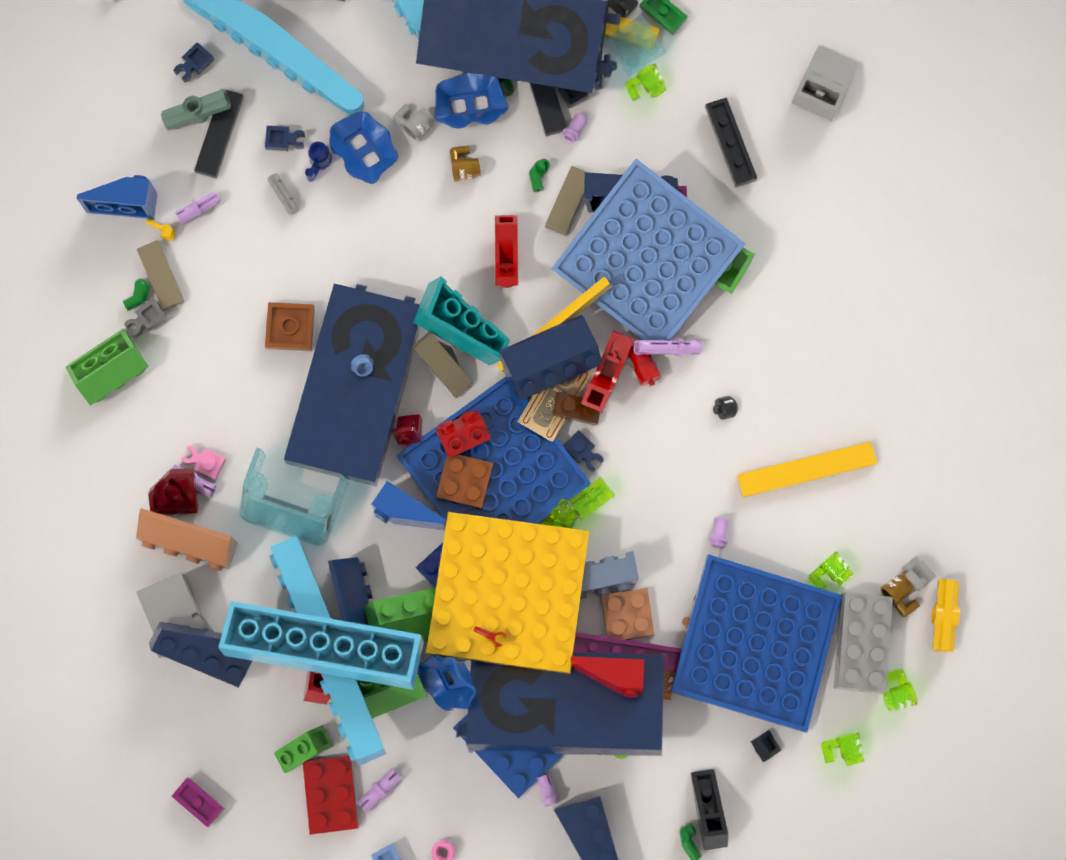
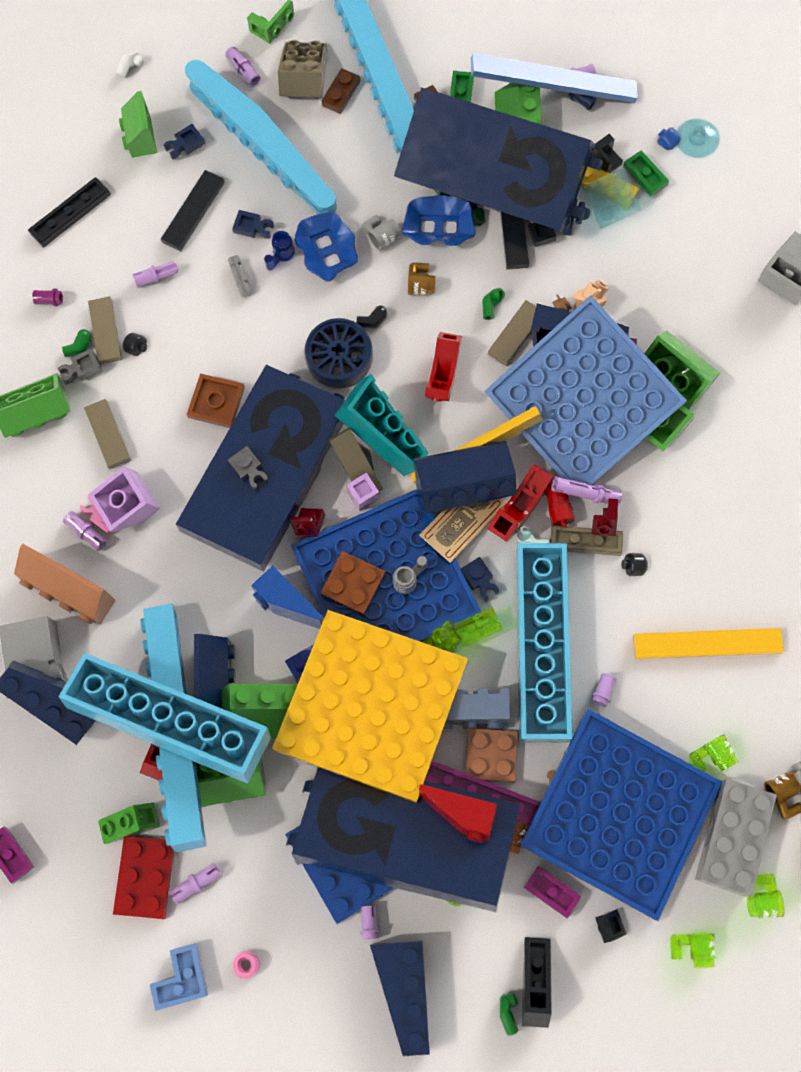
camera: 20 degrees right, 5 degrees down
(92, 158) = (69, 212): none -> black tile
(95, 252) = (48, 297): none -> magenta pin
(123, 197) = (84, 249): blue slope -> none
(142, 56) = (137, 126): none -> bright green slope
(166, 230) = (120, 289): yellow hand -> none
(174, 493) = (64, 538): dark red plate -> none
(186, 113) = (175, 183): sand green piece -> none
(189, 380) = (107, 434): none -> dark tan tile
(193, 283) = (134, 344): none -> black piece
(224, 444) = (123, 500): none -> lavender slope
(309, 525) = (189, 596): clear light blue windscreen -> none
(340, 388) = (247, 466): none -> flat silver plate
(362, 365) = (274, 451): medium blue plate -> none
(406, 249) = (359, 366): none -> dark blue piece
(426, 214) = (374, 319): none -> black arm
(441, 689) = (279, 784): blue piece -> none
(454, 389) = (362, 491): none -> lavender panel
(462, 433) = (361, 535): red bracket -> none
(490, 635) = (341, 744): red hand -> none
(513, 466) = (405, 578): none -> light grey piece
(570, 407) = (476, 532): reddish brown plate -> none
(572, 133) = (532, 269): lavender pin -> none
(608, 165) = (562, 303): none -> medium nougat plate
(623, 406) = (525, 536): none -> light aqua arm
(634, 149) = (596, 290): none -> light nougat hips
(651, 81) = (621, 234): clear neon green piece -> none
(655, 500) = (543, 643): none -> medium azure brick
(675, 394) = (583, 541): none -> dark tan tile
(693, 374) = (607, 522): none -> dark red bracket
(707, 727) = (552, 892): none -> magenta plate
(731, 142) = (689, 306): black plate -> none
(733, 207) = (681, 367): none -> bright green slope

